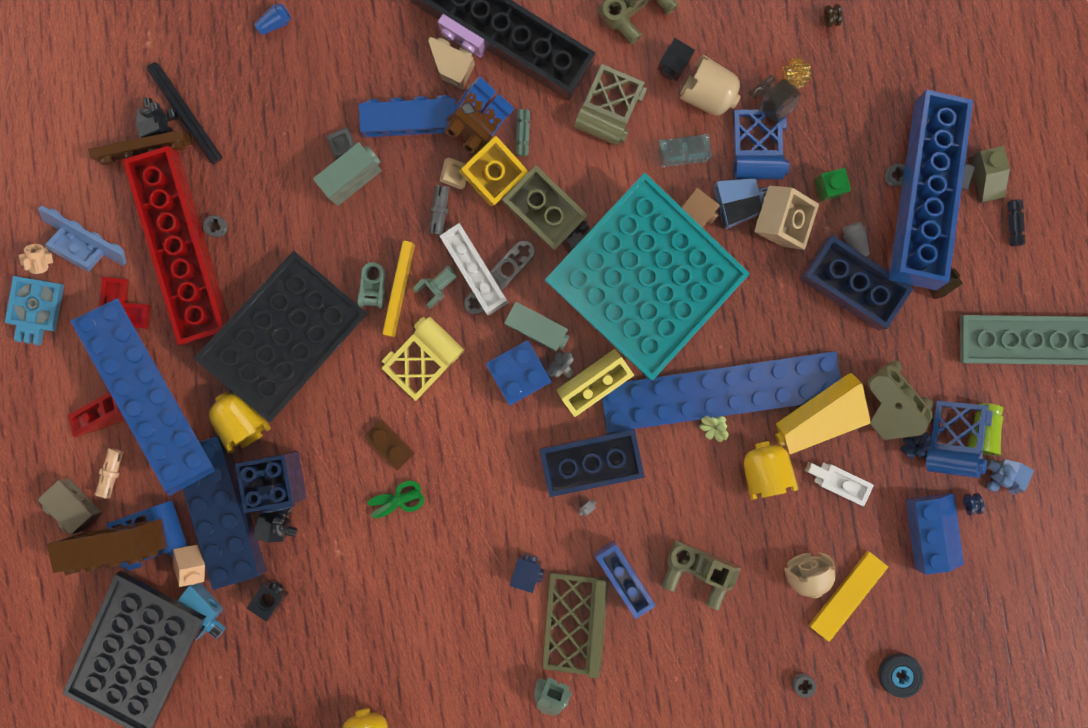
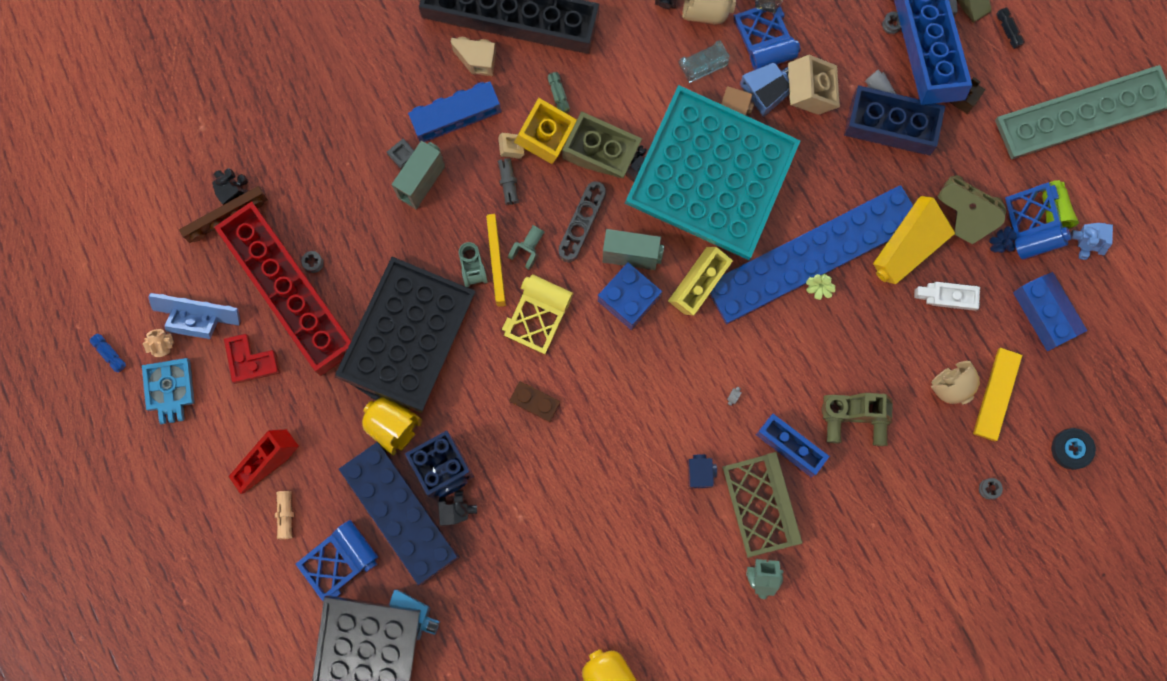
camera: 25 degrees left, 10 degrees down
(69, 506) = (256, 558): dark tan brick -> none
(107, 547) = (307, 577): reddish brown brick -> none
(143, 397) = (300, 425): blue brick -> none
(184, 113) = (253, 174): black axle -> none
(188, 565) = (387, 571): light nougat brick -> none
(261, 607) = (462, 587): black brick -> none
(273, 19) = (307, 70): blue cone -> none
(391, 501) = (555, 452): green piece -> none
(461, 36) = (478, 29): lavender plate -> none
(470, 122) = (515, 89): hips -> none
(474, 269) = (557, 219): white plate -> none
(561, 365) = (665, 277): light grey plant -> none
(591, 462) = (723, 351): dark blue brick -> none
(604, 123) = (627, 61): olive piece -> none
(768, 471) = (883, 305): yellow cylinder -> none
(832, 184) = (842, 47): green brick -> none
(973, 504) = (1073, 274): dark blue bush -> none

